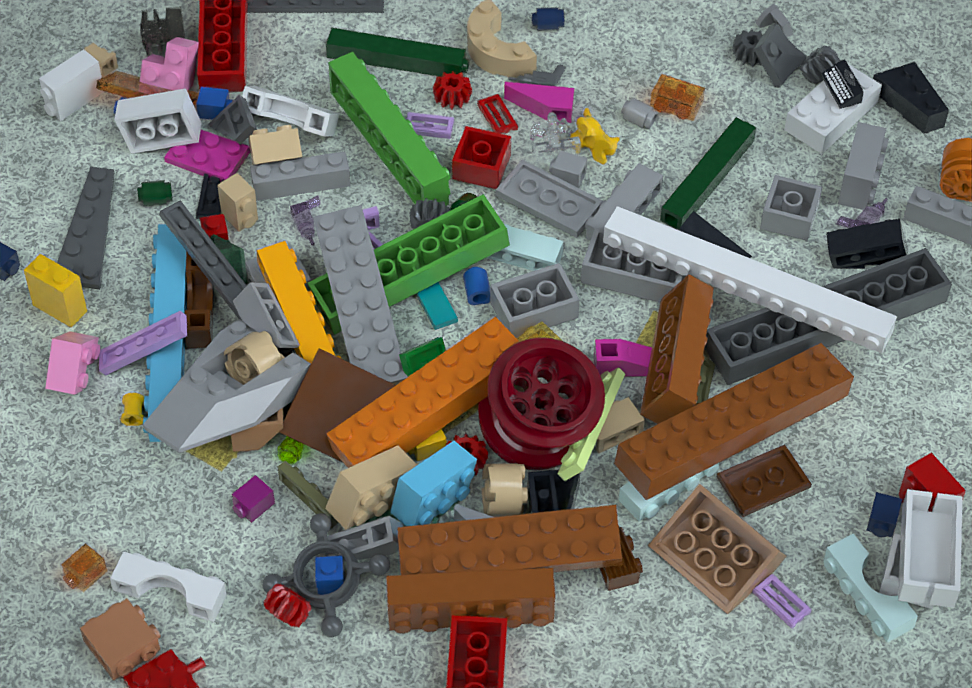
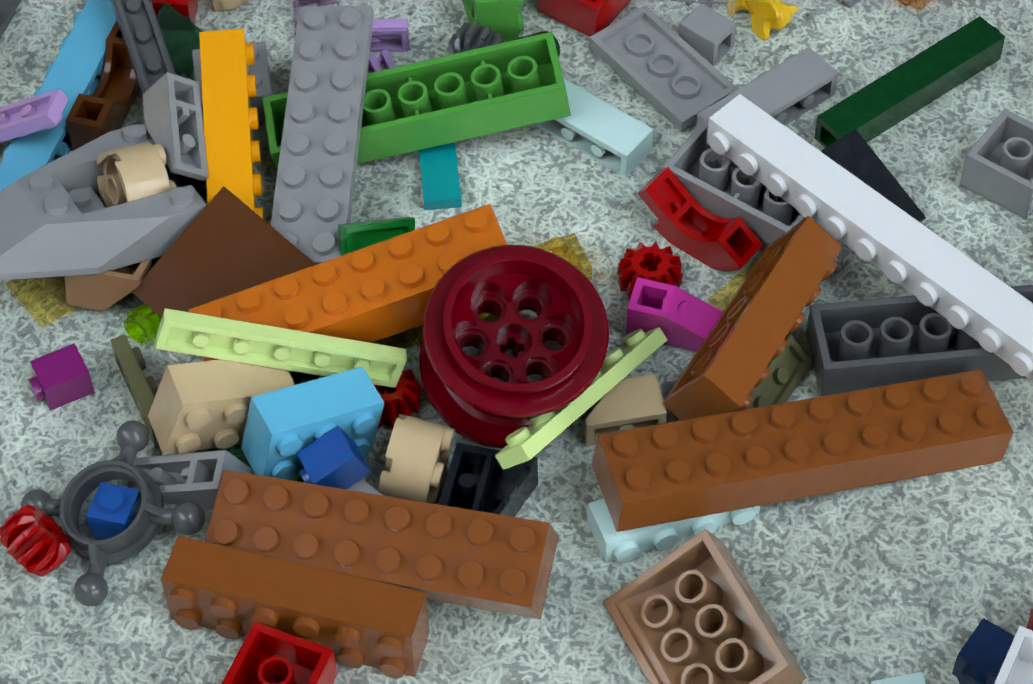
camera: 20 degrees right, 0 degrees up
(399, 442) = (277, 347): none -> yellowish green plate
(458, 504) = (333, 461): none -> blue brick
(477, 286) = (506, 163): blue brick -> none
(535, 298) = (578, 197): light grey brick -> none
(593, 329) = (649, 264): none -> red gear
(613, 300) = (688, 226): none -> red arch
(626, 574) = (556, 626): reddish brown brick -> none
(763, 480) = (819, 553): reddish brown tile -> none

